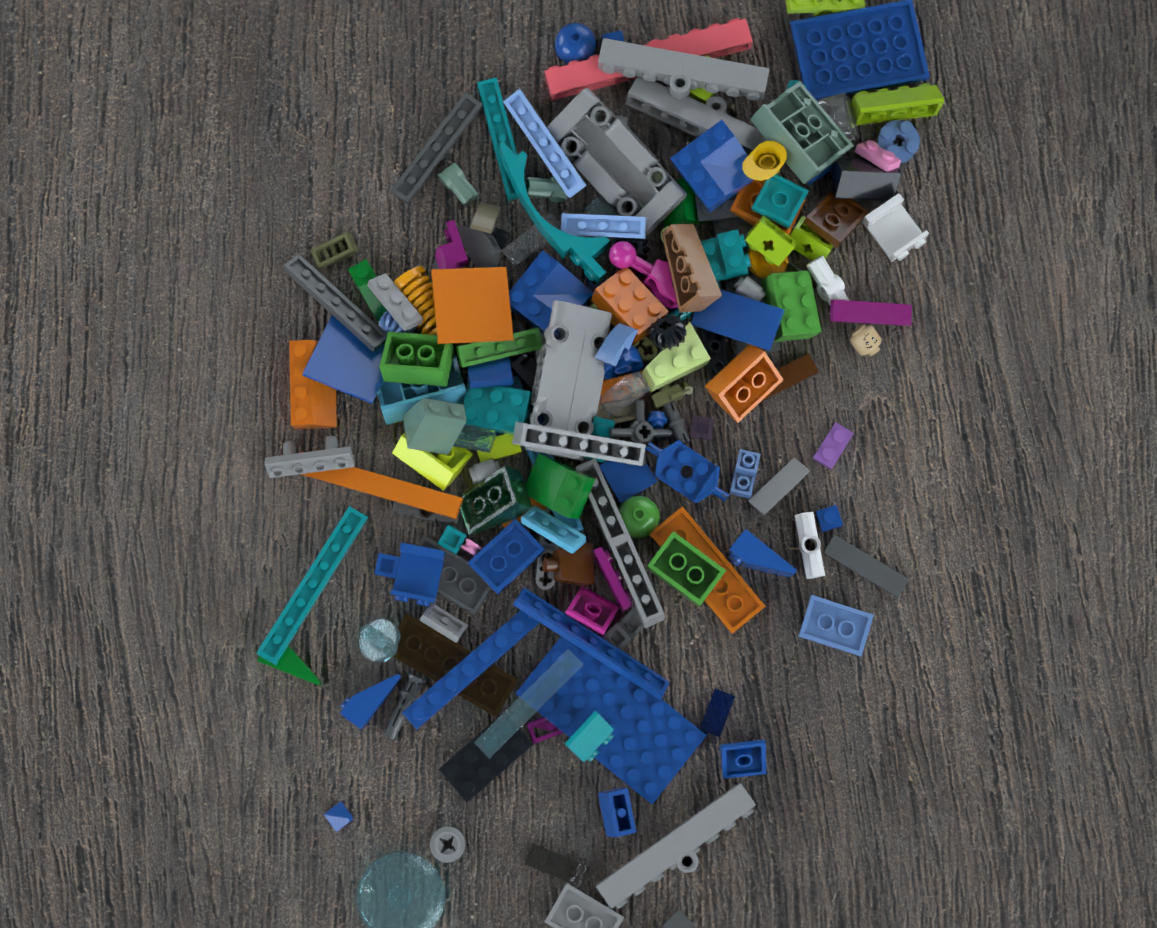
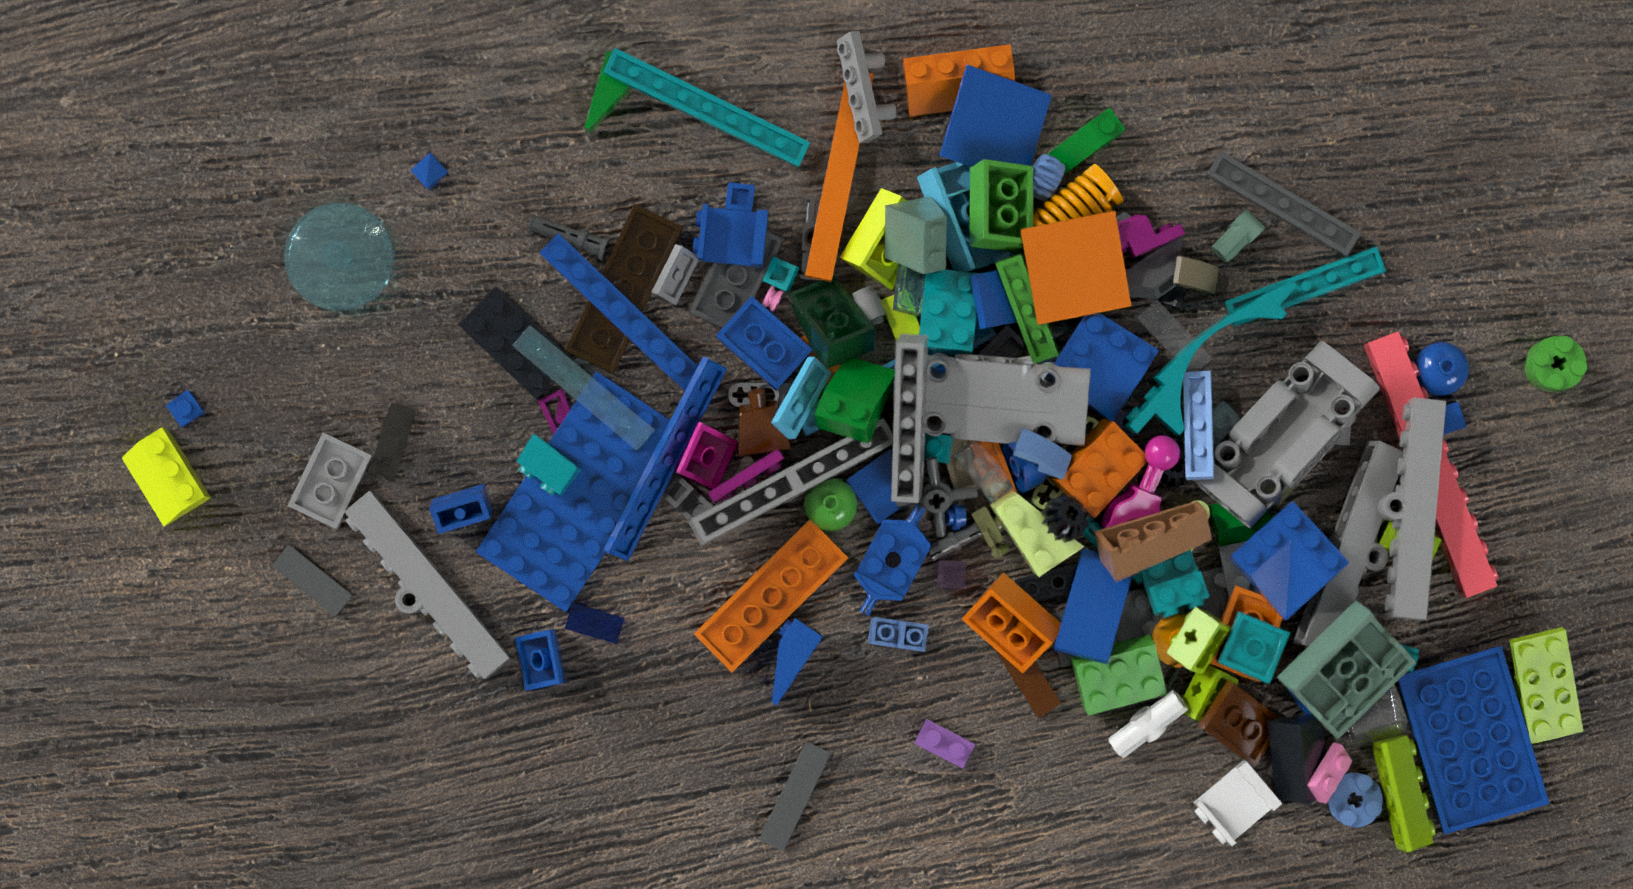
camera: 85 degrees right, 5 degrees up
(335, 302) = (1067, 97): dark grey plate -> none
(353, 249) = (1145, 109): olive slope -> none
(366, 703) = (565, 187): blue slope -> none
(379, 640) = (646, 197): clear light blue tile -> none
(395, 302) = (1071, 170): light grey plate -> none
(437, 846) = (405, 293): light grey gear -> none
(544, 143) = (1301, 340): light blue plate -> none
(545, 188) = (1243, 355): sand green piece -> none
(686, 569) = (766, 567): bright green brick -> none
(749, 289) = (1133, 619): light grey brick -> none
(764, 161) = (1299, 622): yellow piece -> none
(778, 486) = (885, 678): light grey slope -> none
(811, 559) = (795, 726): white piece -> none
(829, 518) = (851, 745): blue plate -> none
(836, 625) = (715, 763): medium blue plate -> none
(865, 340) = (1084, 775): tan head -> none
(870, 312) = (1120, 778): magenta tile -> none

